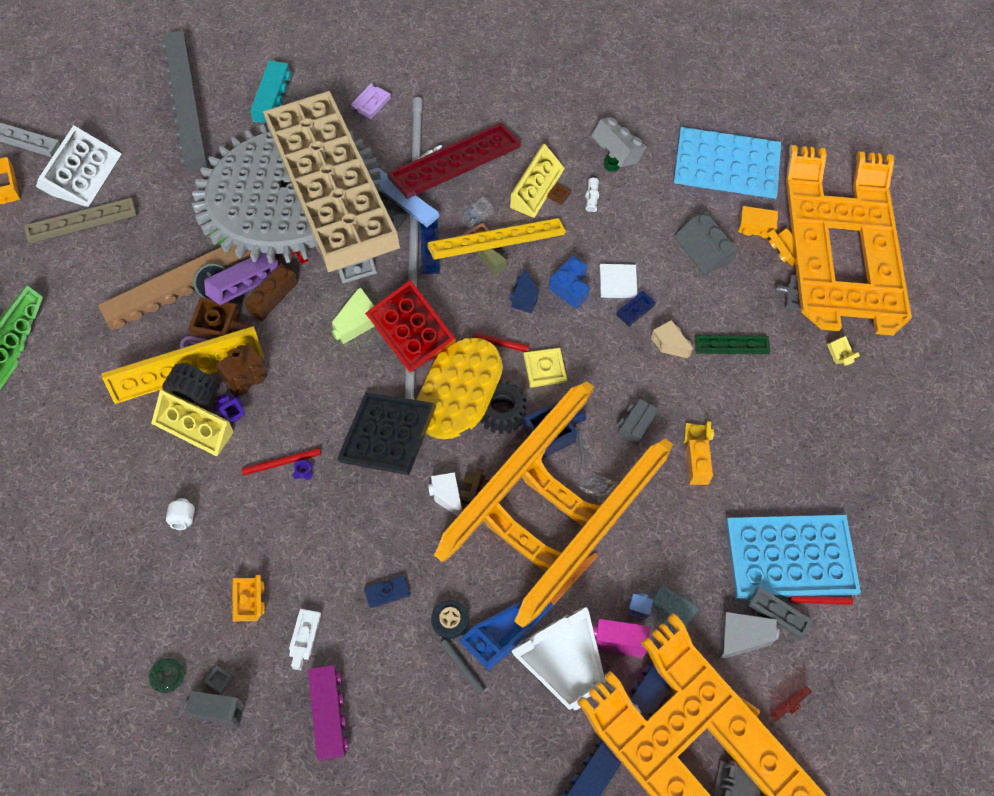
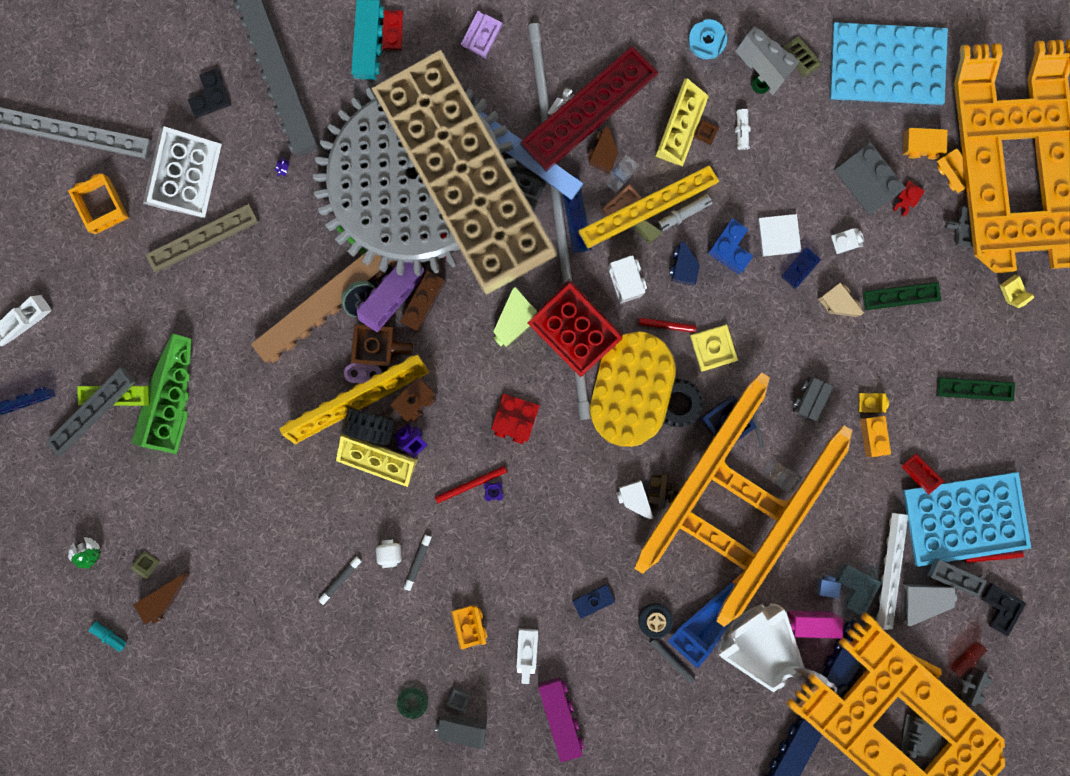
camera: 10 degrees left, 25 degrees up
(123, 537) = (340, 579): none -> dark grey bar
(125, 120) = (214, 96): none -> black plate
(170, 174) = (282, 167): none -> dark purple plate
(208, 530) = (417, 562): none -> dark grey bar
(295, 89) = (392, 30): none -> red plate
(337, 405) = (515, 418): none -> red plate
(387, 433) = (569, 447): black plate -> none
(463, 196) = (605, 153): none -> reddish brown slope
(467, 293) = (627, 279): none -> white brick
(524, 253) = (678, 216): none -> light grey pin
(568, 134) = (698, 45): none -> medium azure plate
(653, 158) = (806, 52): none -> olive slope
(682, 290) = (848, 240): none -> white bracket
(711, 597) = (892, 571): none -> white plate
(742, 263) = (909, 197): none -> red plate
(746, 504) = (922, 474): none -> red plate
(795, 733) = (973, 686): none -> dark grey hips
(803, 435) = (975, 389): none -> dark green tile
(836, 654) = (1007, 608): none -> black plate

